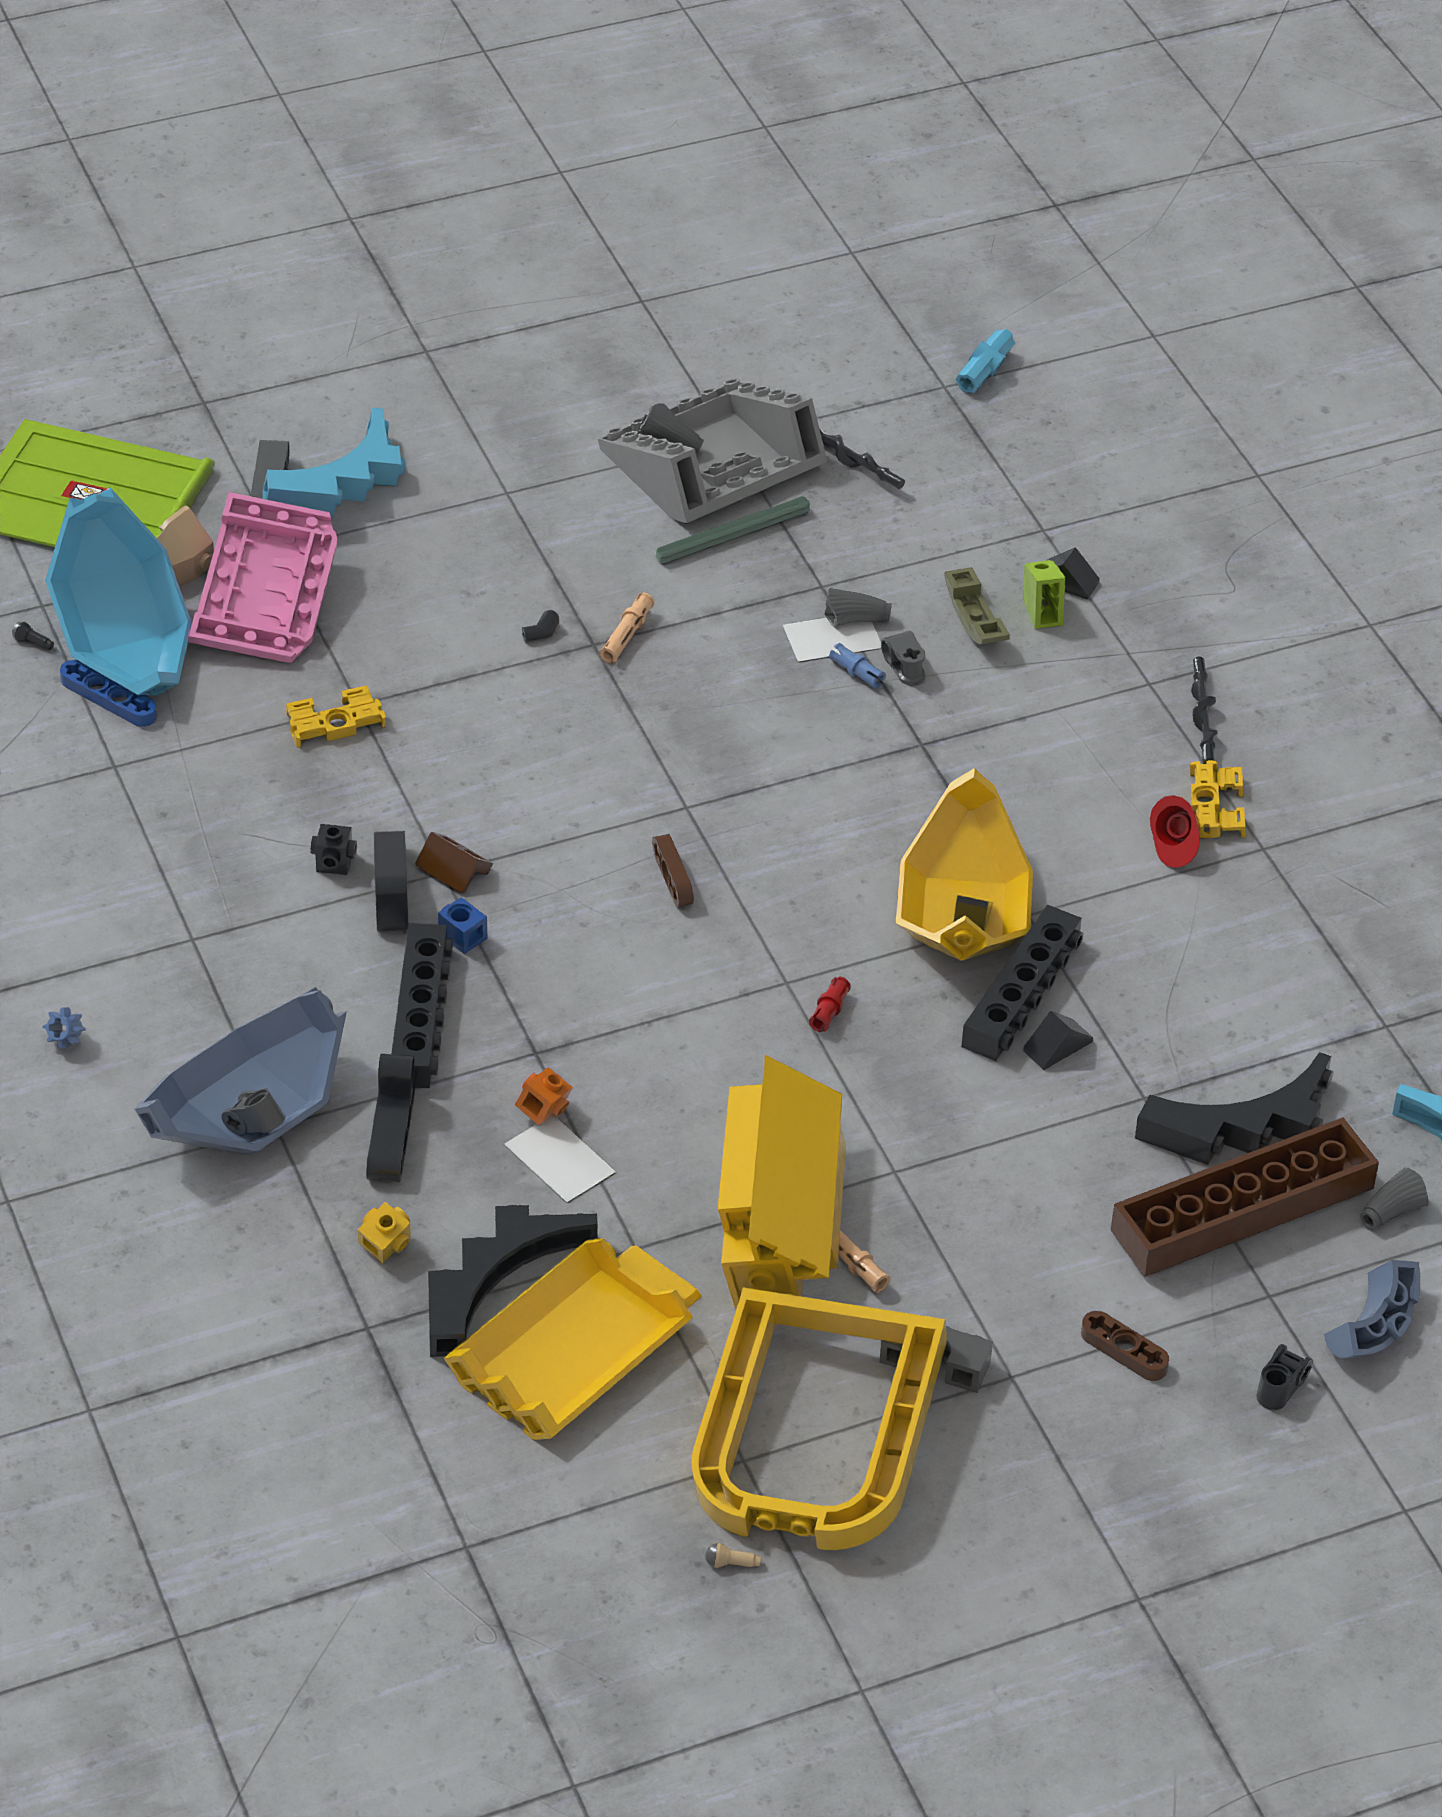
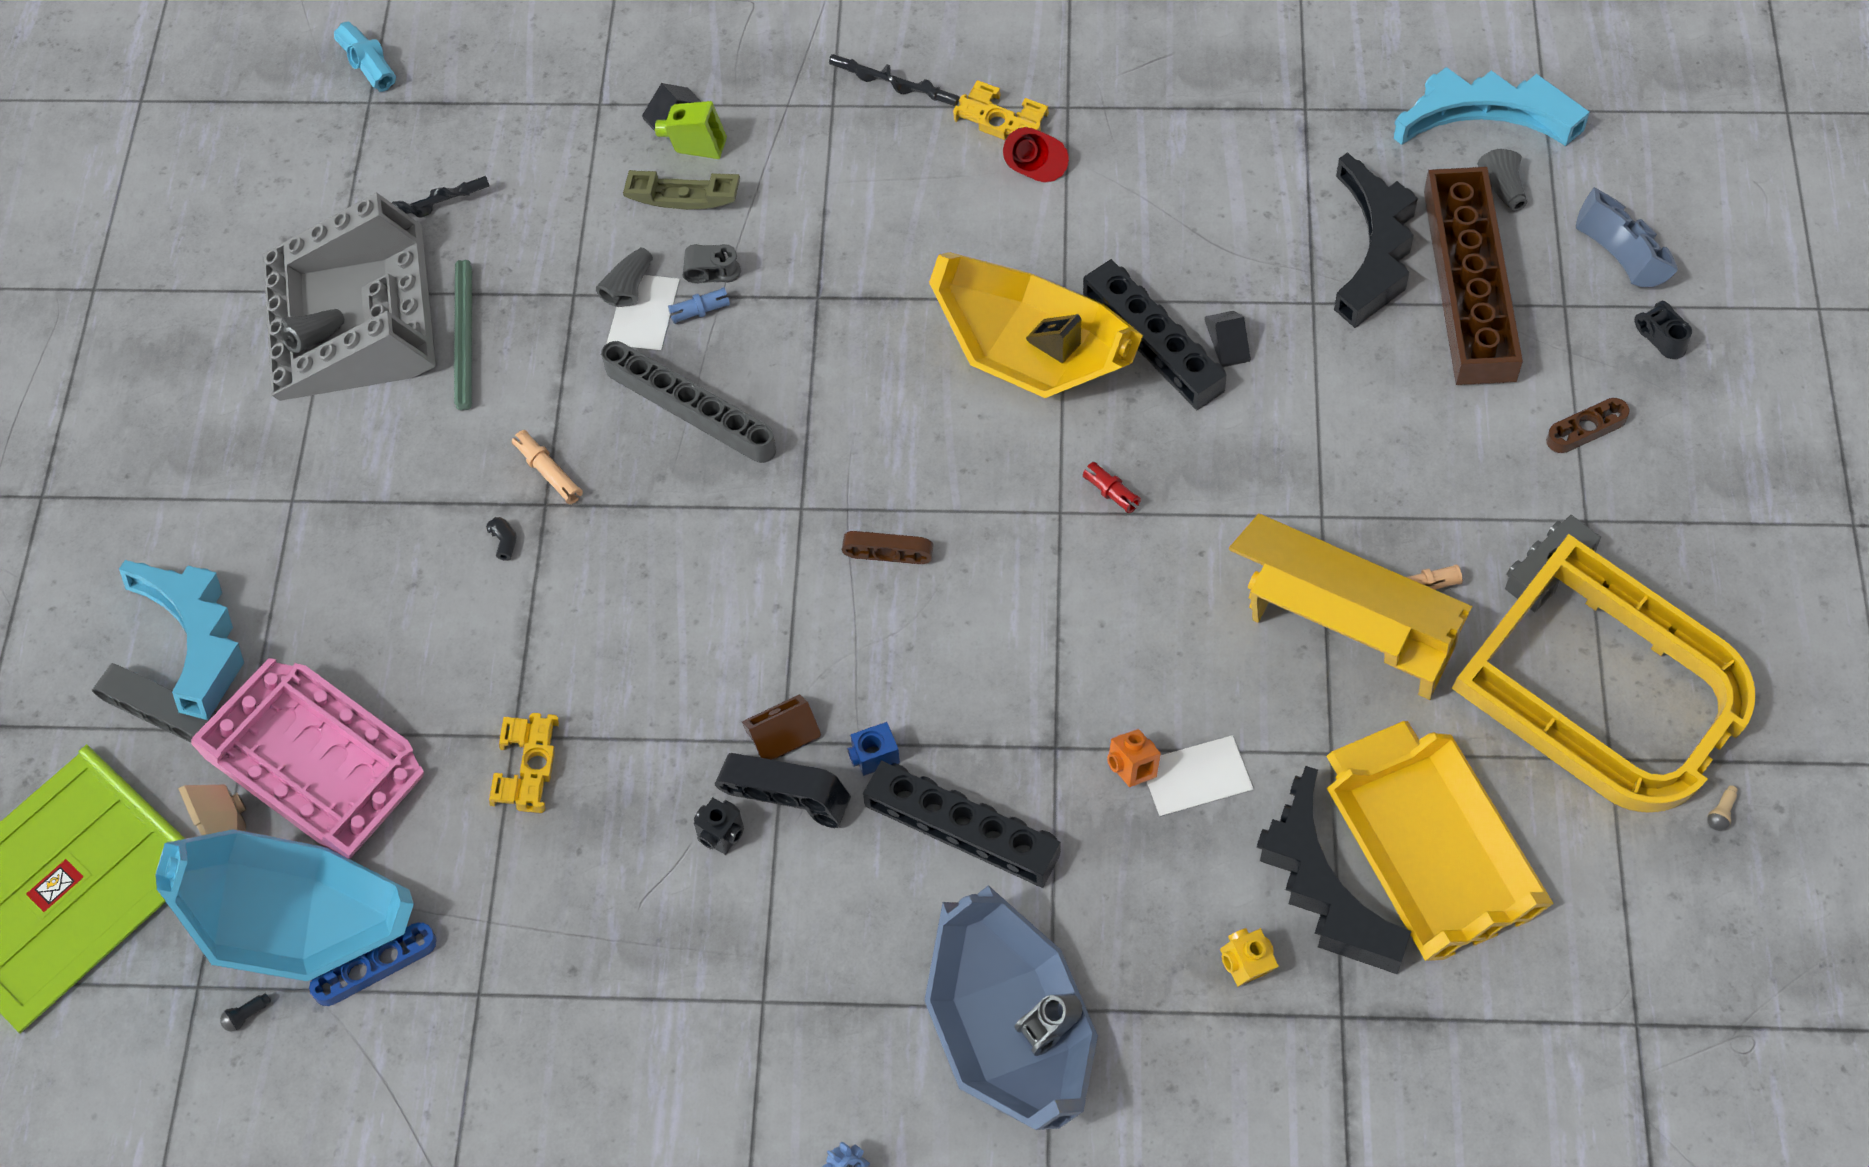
camera: 60 degrees left, 15 degrees up
(391, 1117) = (1105, 902): black beam -> none
(747, 691) = (695, 412): none -> dark grey beam

